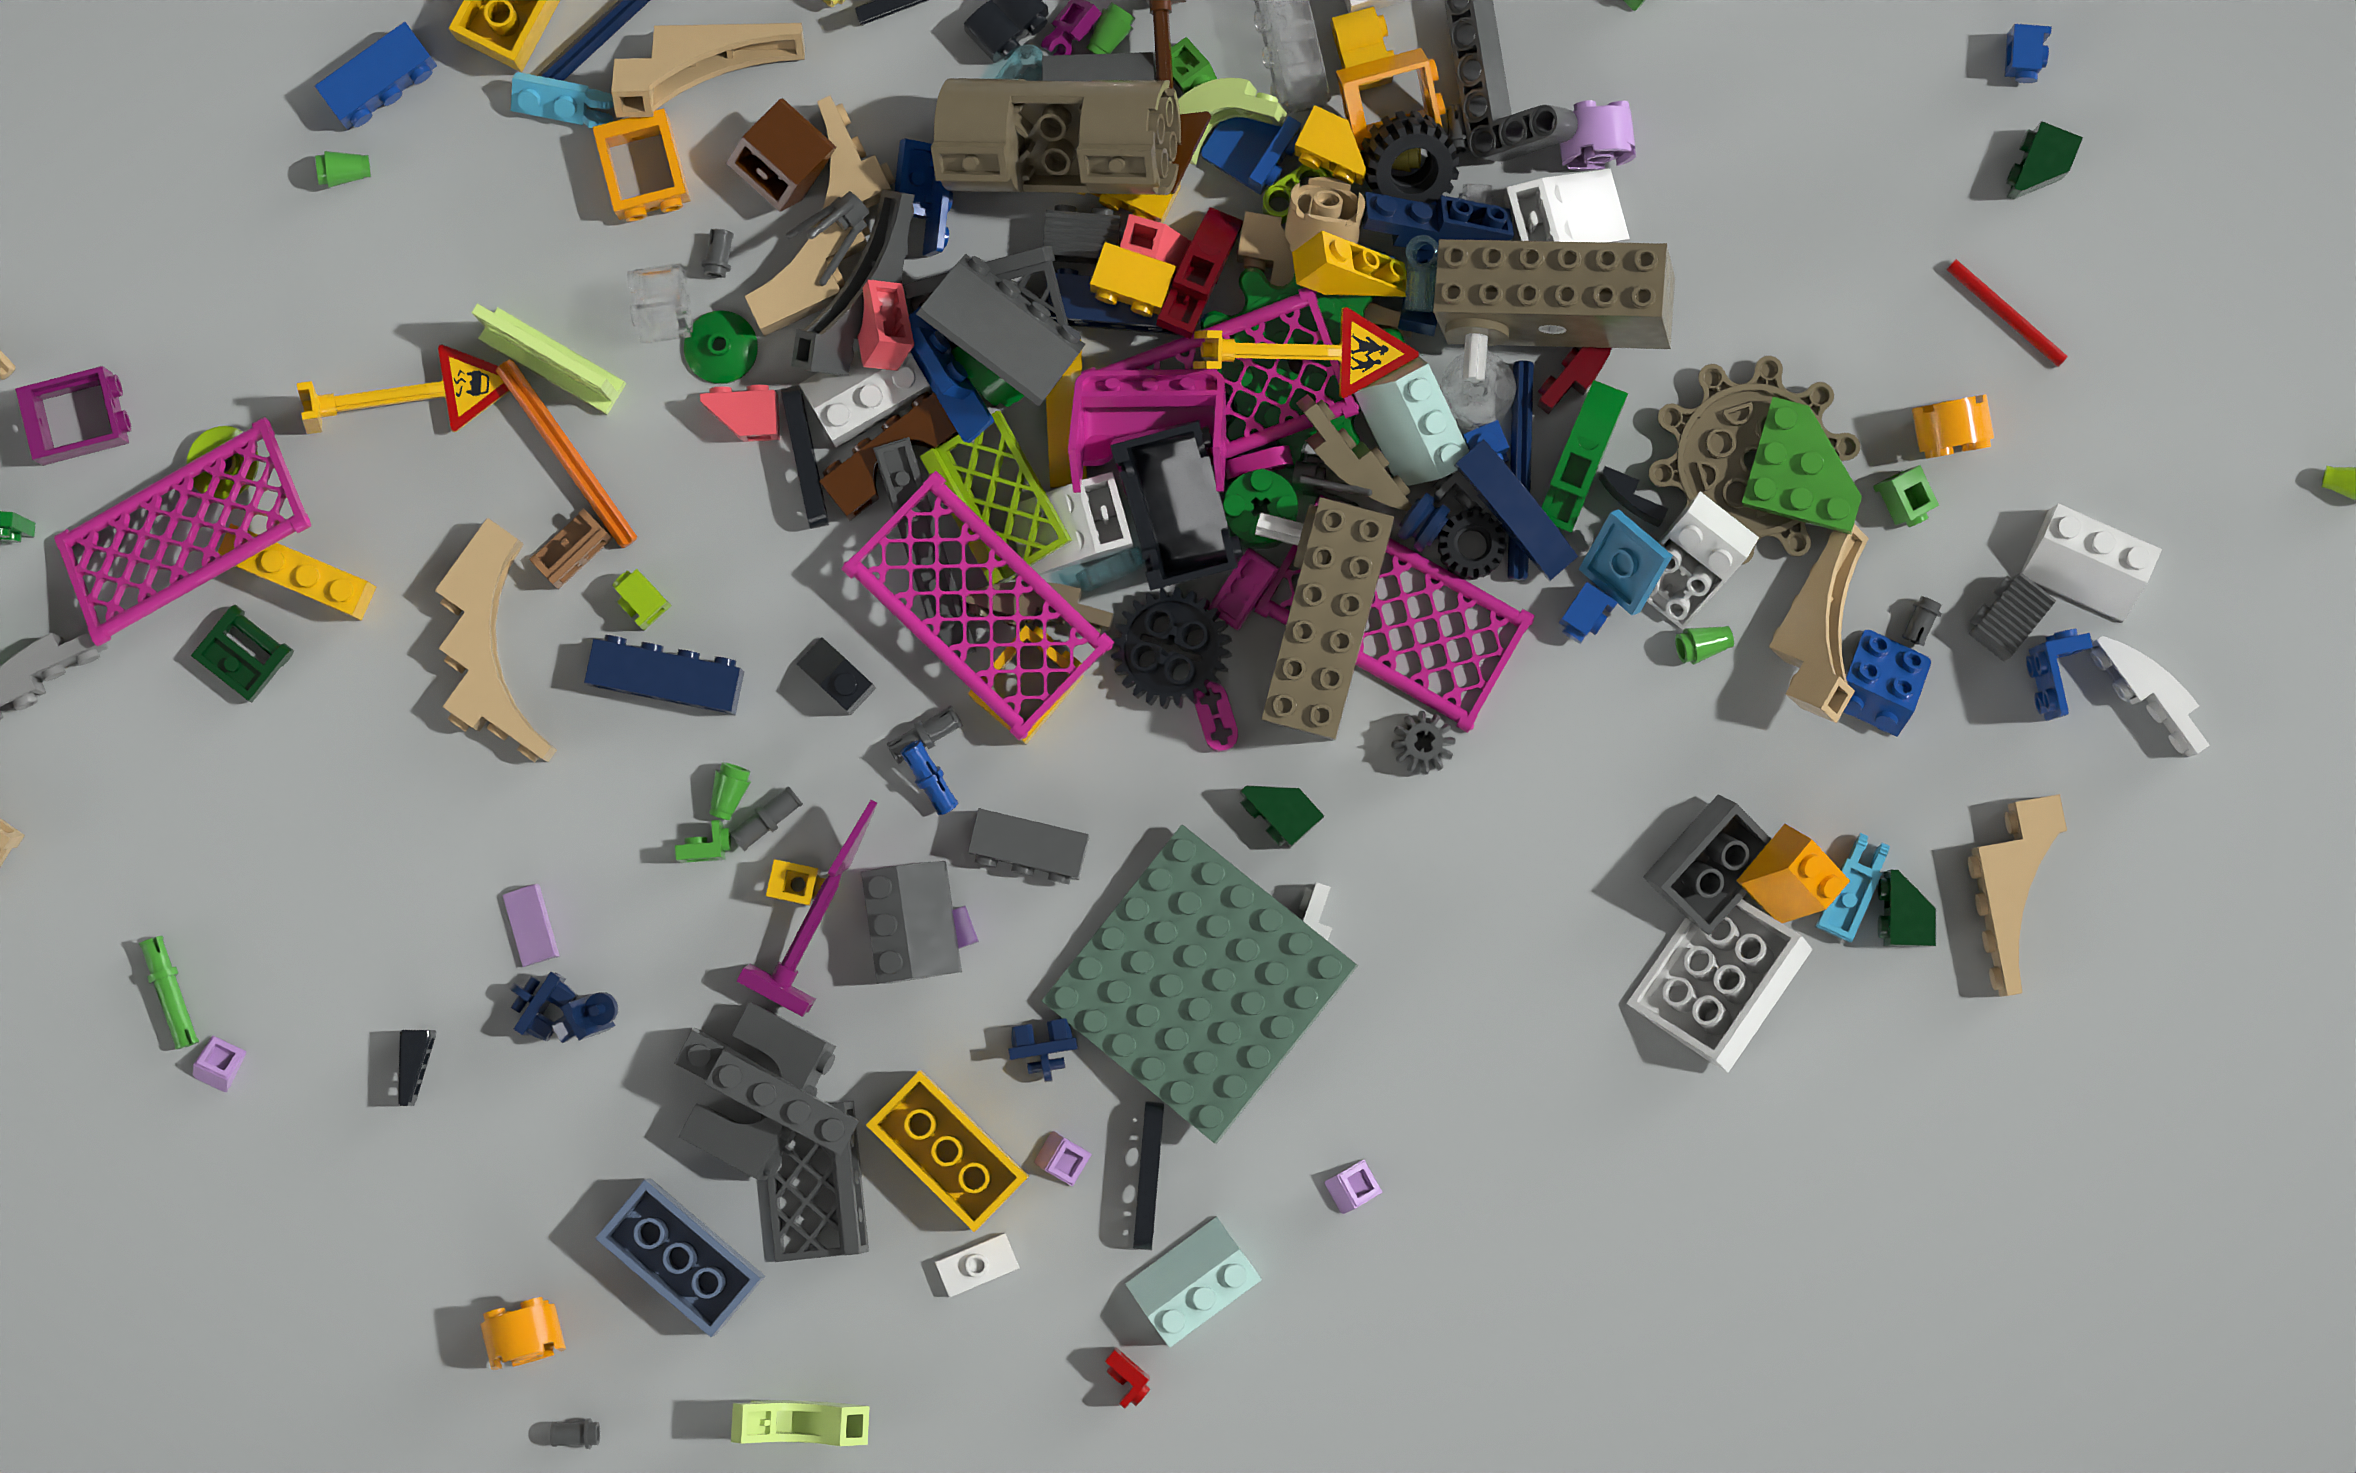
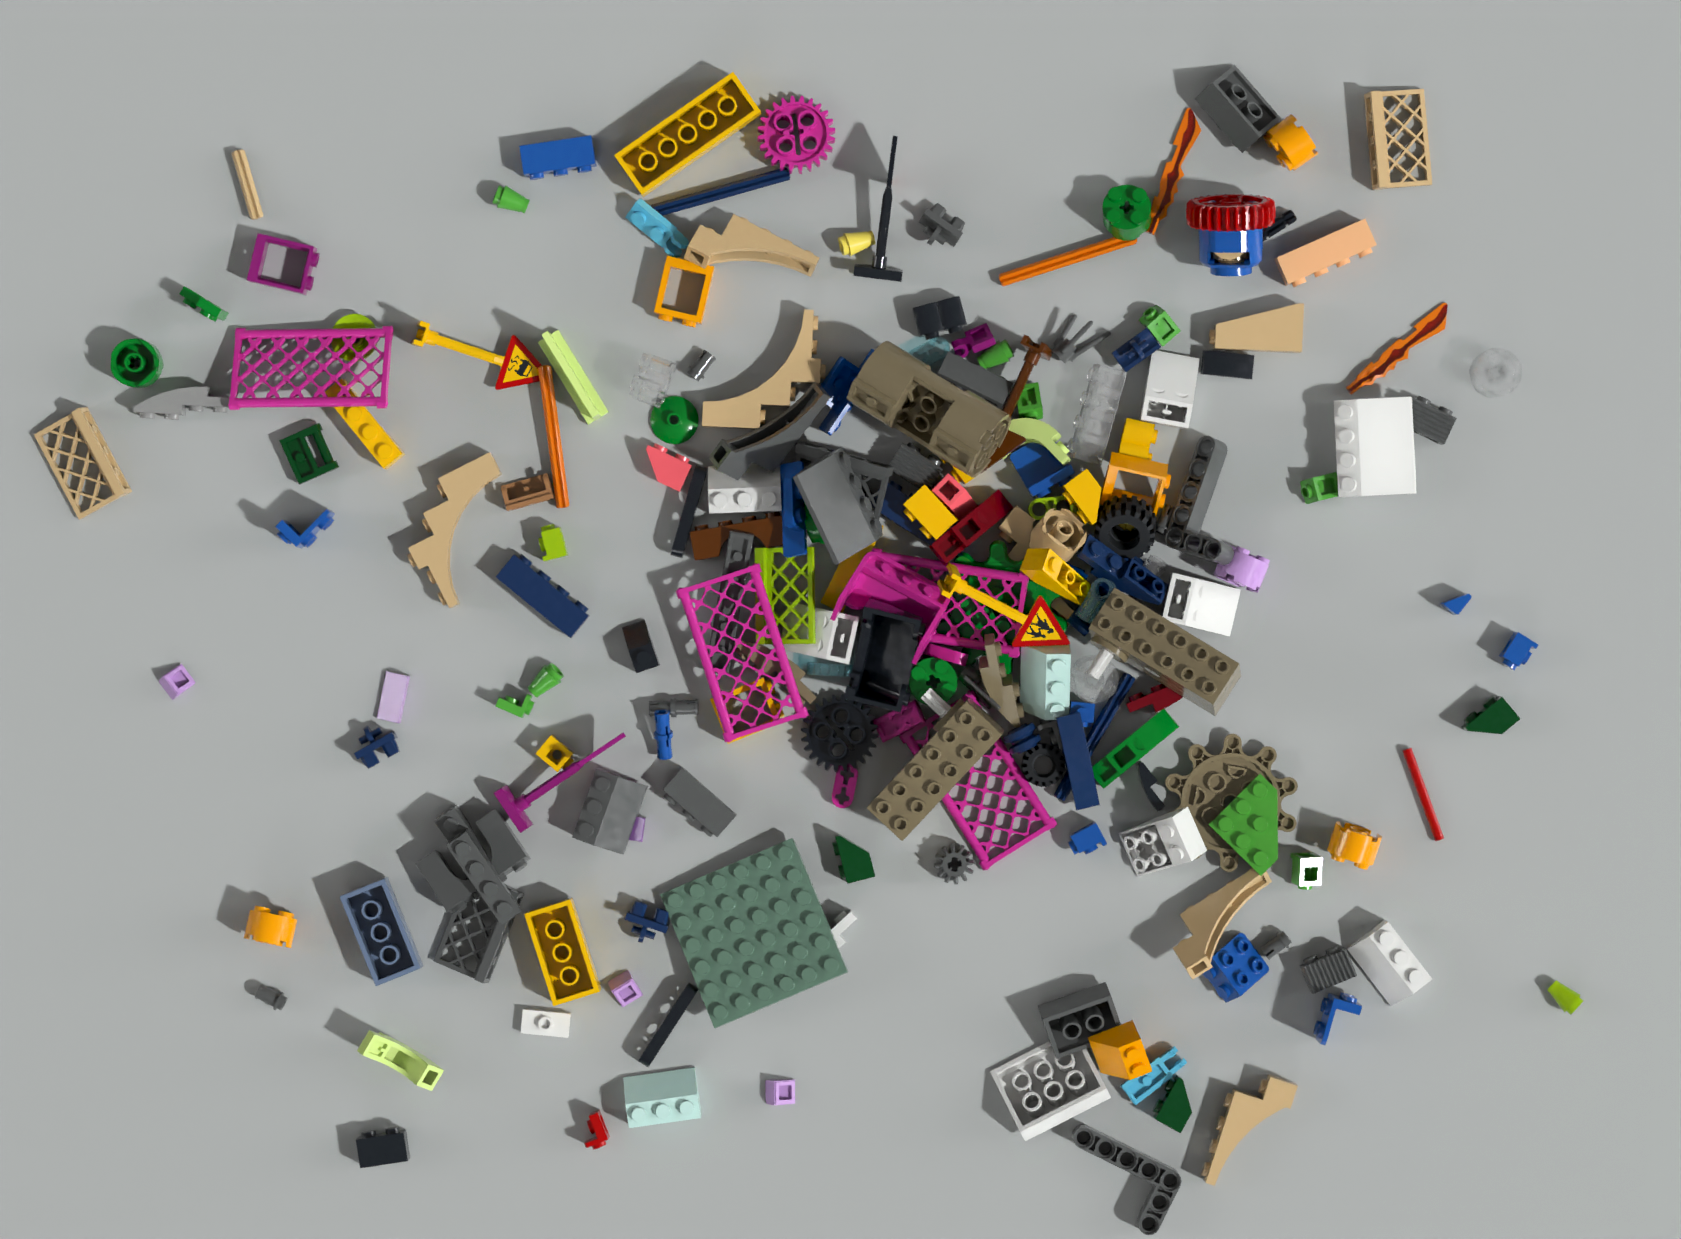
camera: 25 degrees right, 5 degrees up
(168, 992) = (169, 625): bright green pin -> none
(295, 762) = (307, 538): none -> blue bracket
(413, 1061) = (291, 735): black slope -> none
(586, 1017) = (398, 768): dark blue hips -> none
(766, 818) = (558, 707): dark grey pin -> none
(781, 155) = (766, 330): reddish brown slope -> none
(845, 212) = (785, 385): dark grey plant -> none
(885, 327) = (773, 467): coral arch -> none
(1625, 562) = (1123, 823): dark azure plate -> none
(1701, 643) = (1144, 891): bright green cone -> none
(1899, 1027) = (1135, 1168): none -> dark grey beam
(1910, 35) = (1456, 604): none -> blue slope
(2142, 678) = (1382, 1045): white slope -> none

